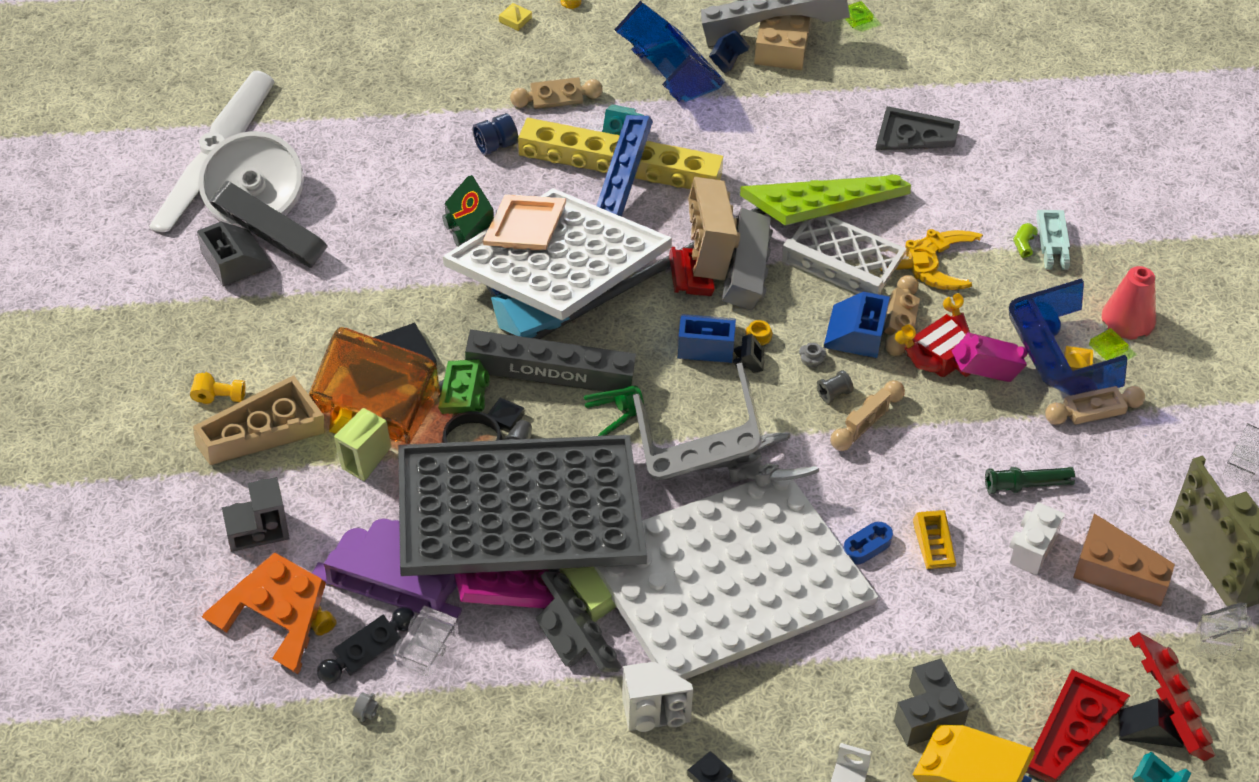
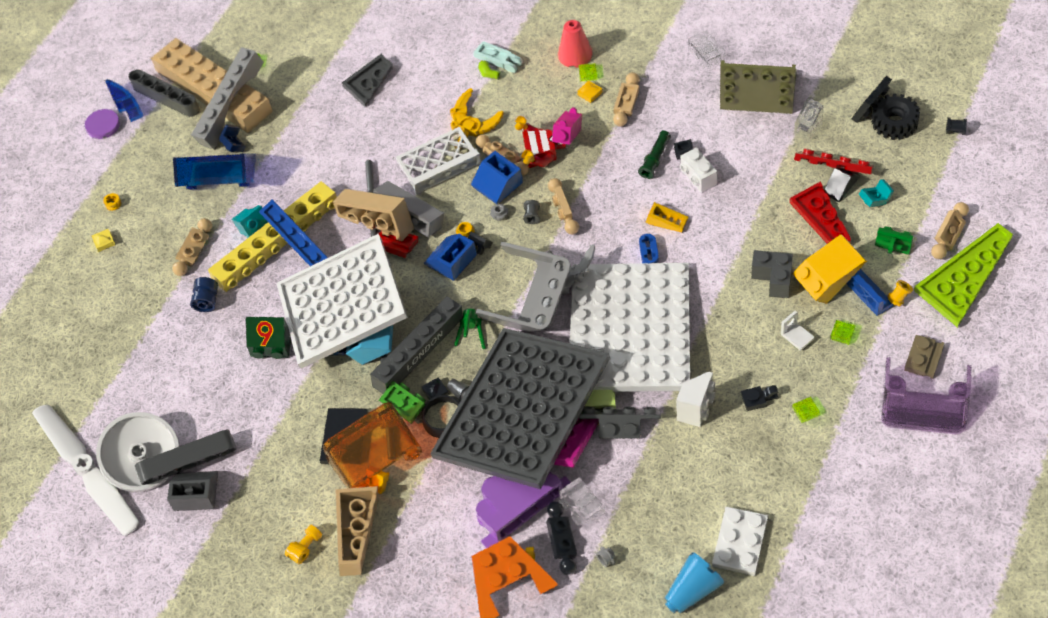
camera: 50 degrees left, 5 degrees up
(259, 520) = (431, 558): dark grey brick -> none
(362, 443) = (414, 474): yellowish green torso -> none
(524, 222) = (303, 306): light nougat piece -> none
(817, 198) = (390, 150): lime wing -> none
(1038, 322) = (579, 98): clear blue windscreen -> none
(1065, 504) = (682, 148): none -> black tile
(1123, 564) = (737, 141): medium nougat wedge -> none

